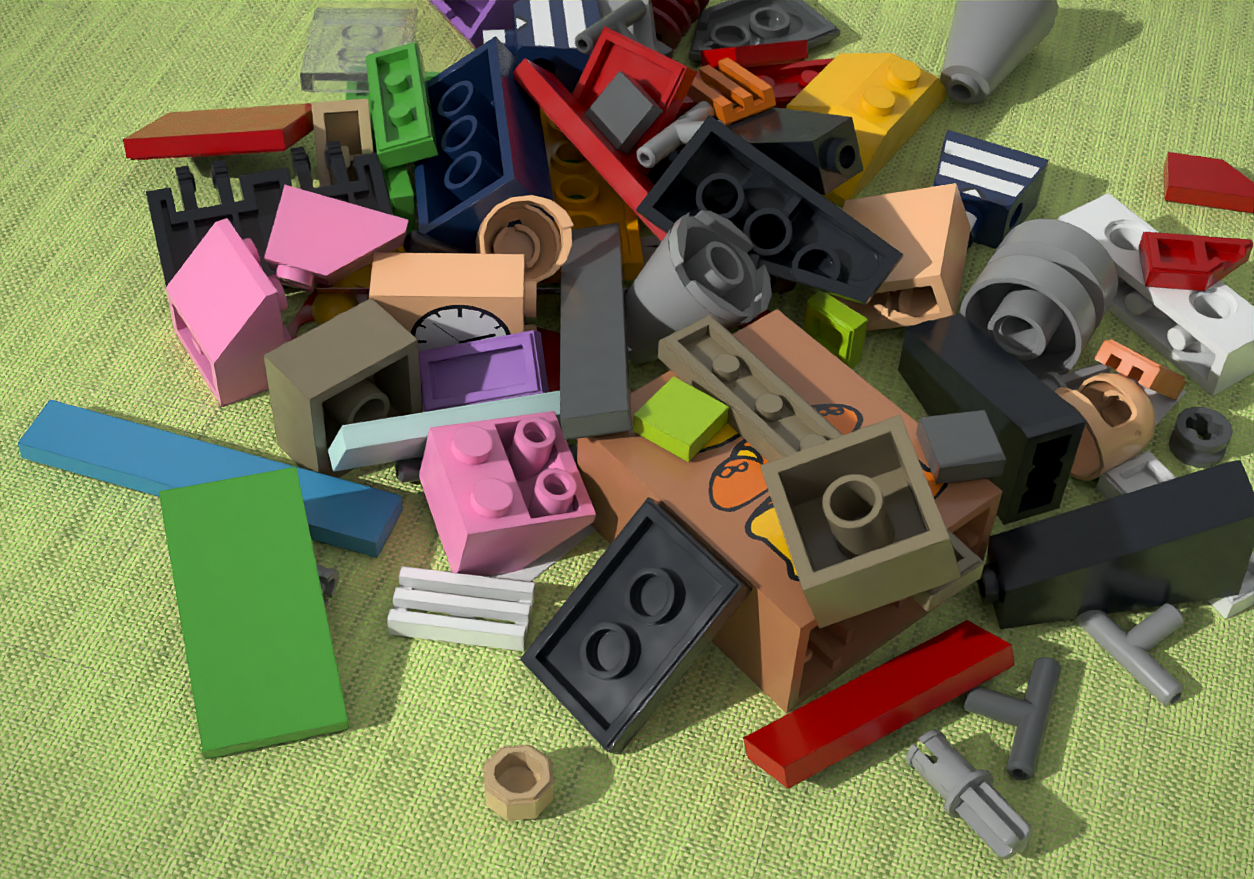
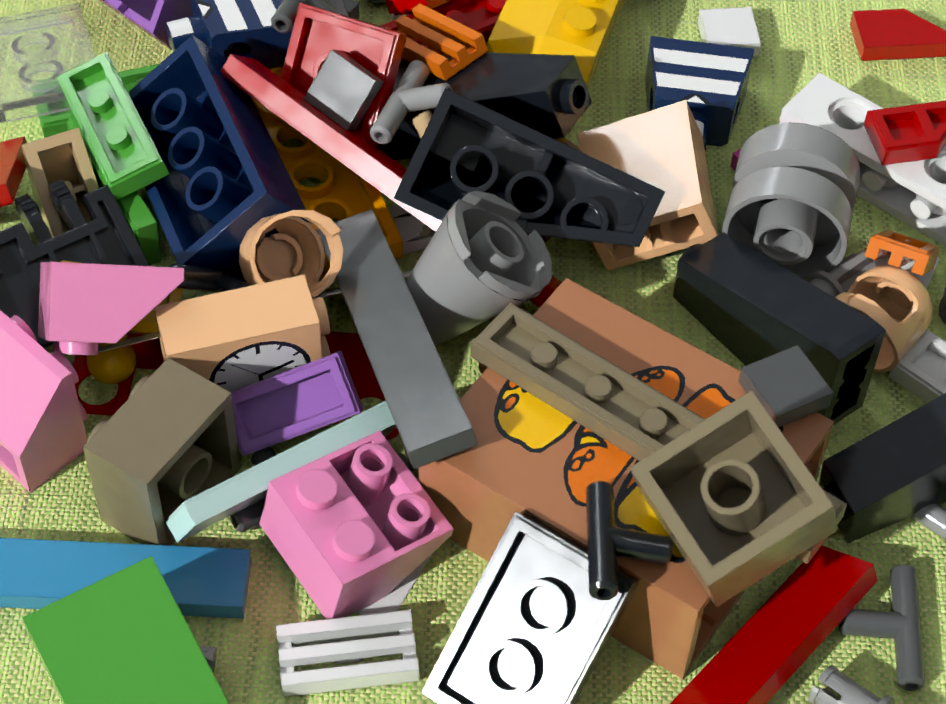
camera: 15 degrees left, 5 degrees up
(680, 419) = (518, 420): lime tile -> none
(728, 541) = (609, 542): none -> black piece
(836, 327) = (608, 272): lime tile -> none
(1039, 141) = (729, 27): none -> white tile

